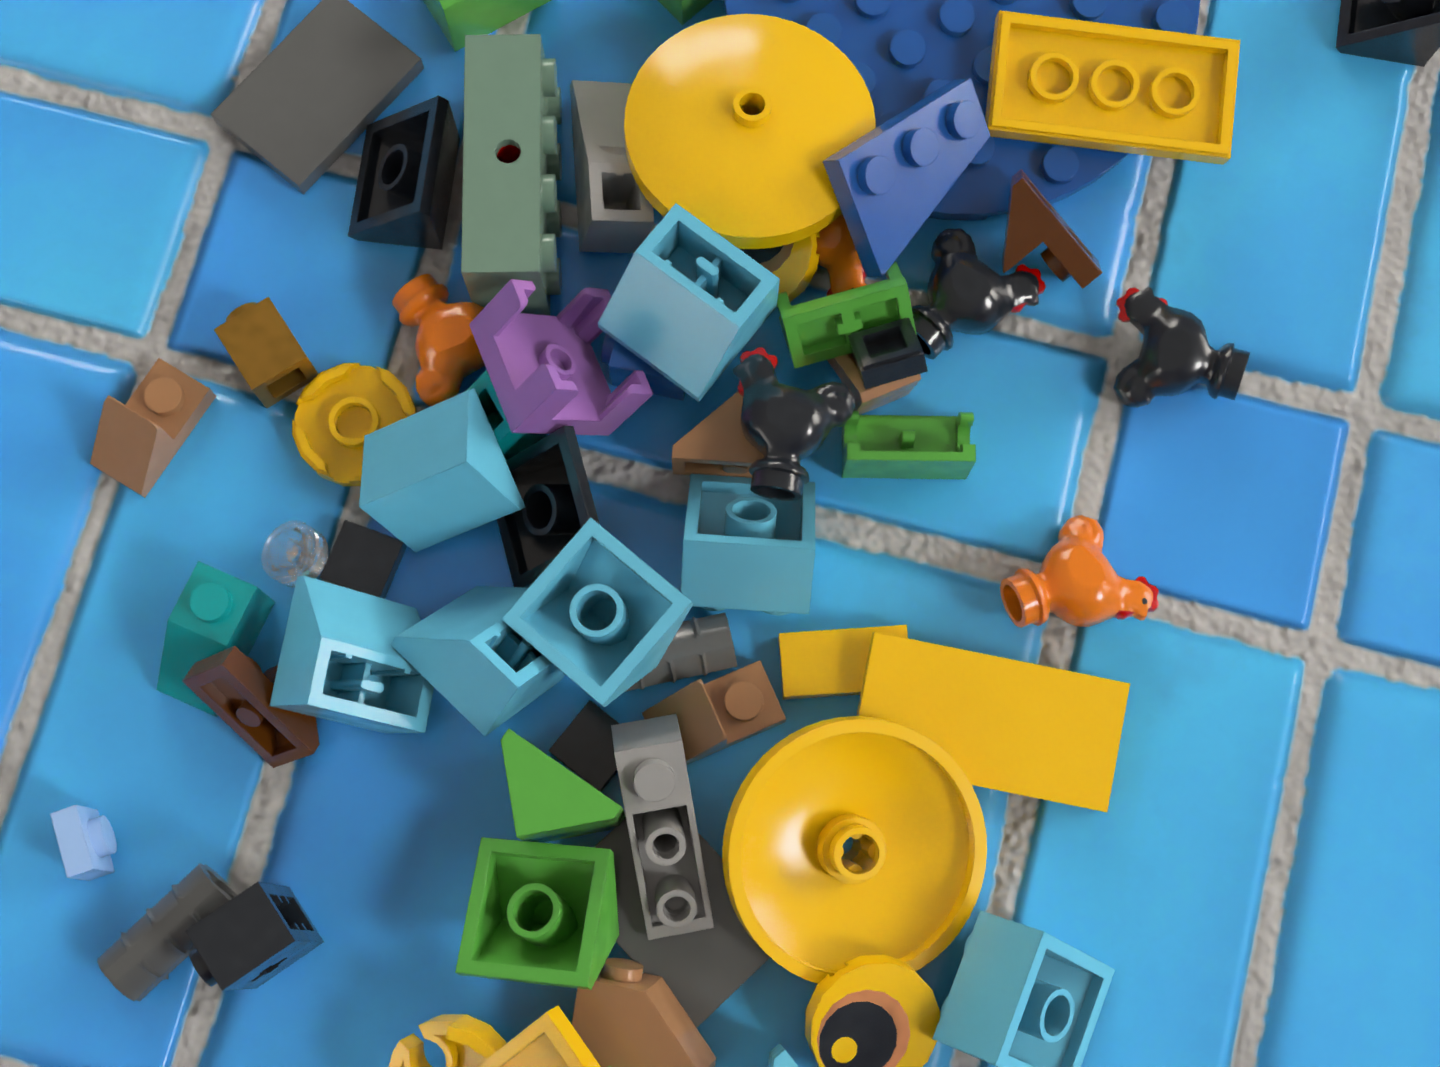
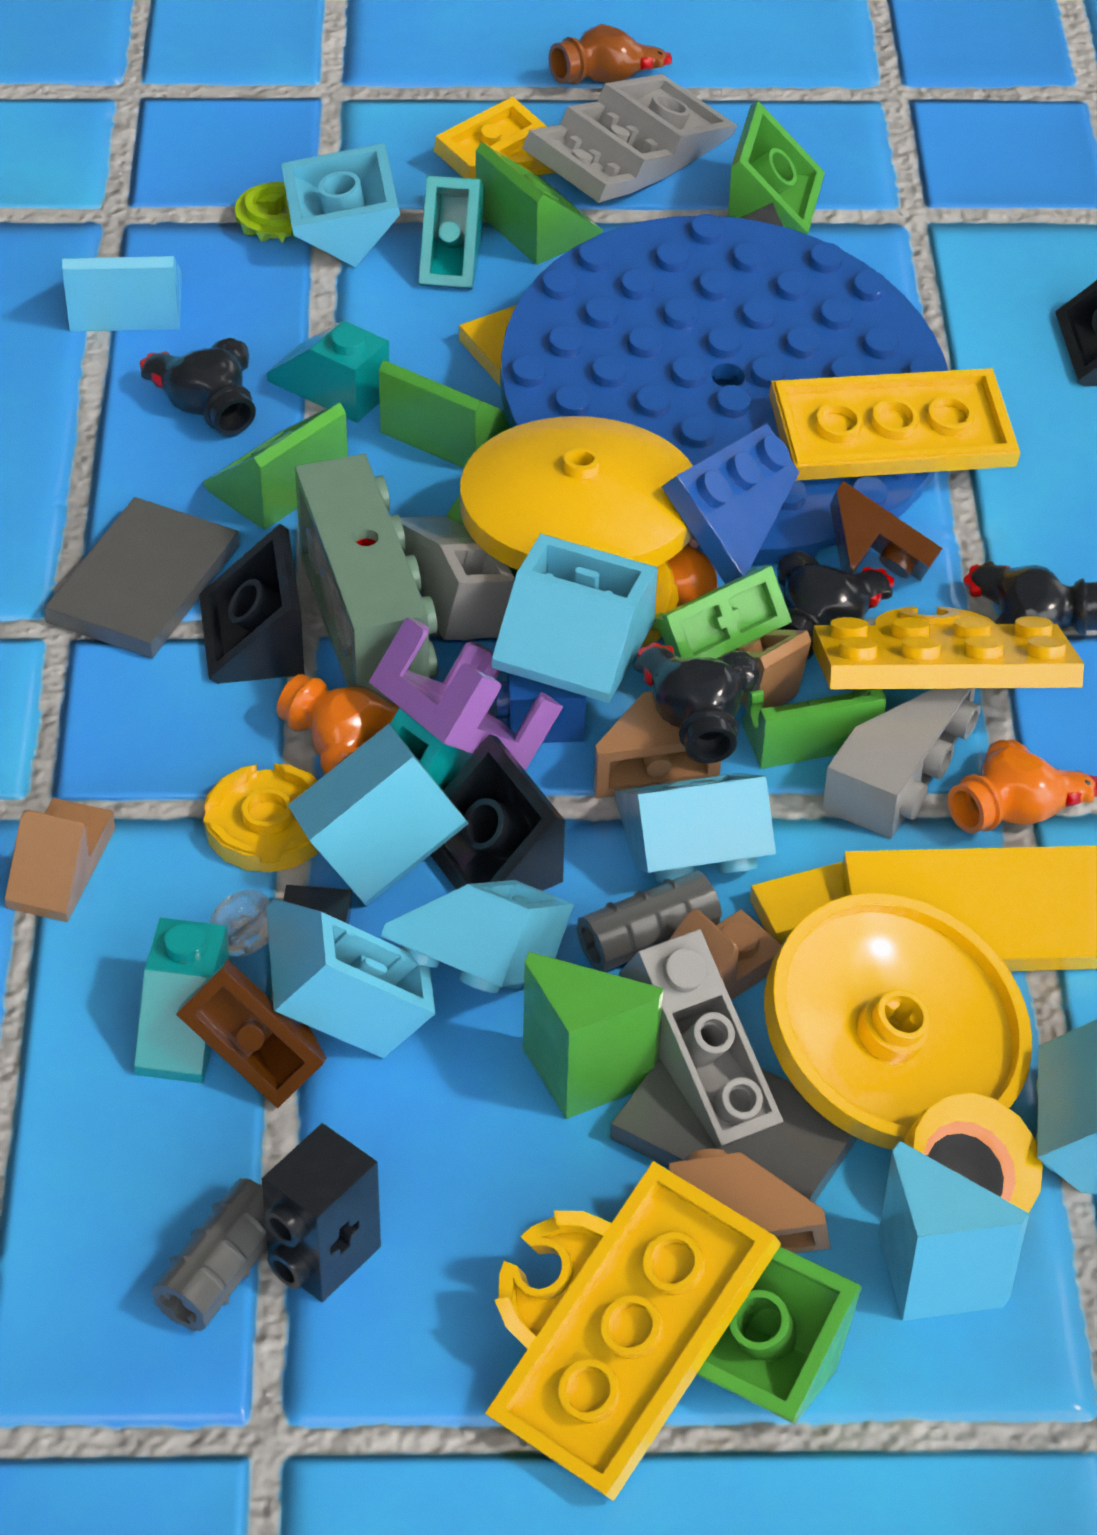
camera: 15 degrees left, 30 degrees down
(84, 842) = (104, 1196): light blue plate -> none
(265, 351) = (163, 769): pearl gold brick -> none
(540, 913) = (604, 1119): bright green slope -> none
(600, 614) = (585, 853): medium azure slope -> none
(887, 353) = (772, 627): black tile -> none
(963, 516) = (891, 758): none -> light grey slope
(1056, 414) = (945, 652): none -> yellow plate

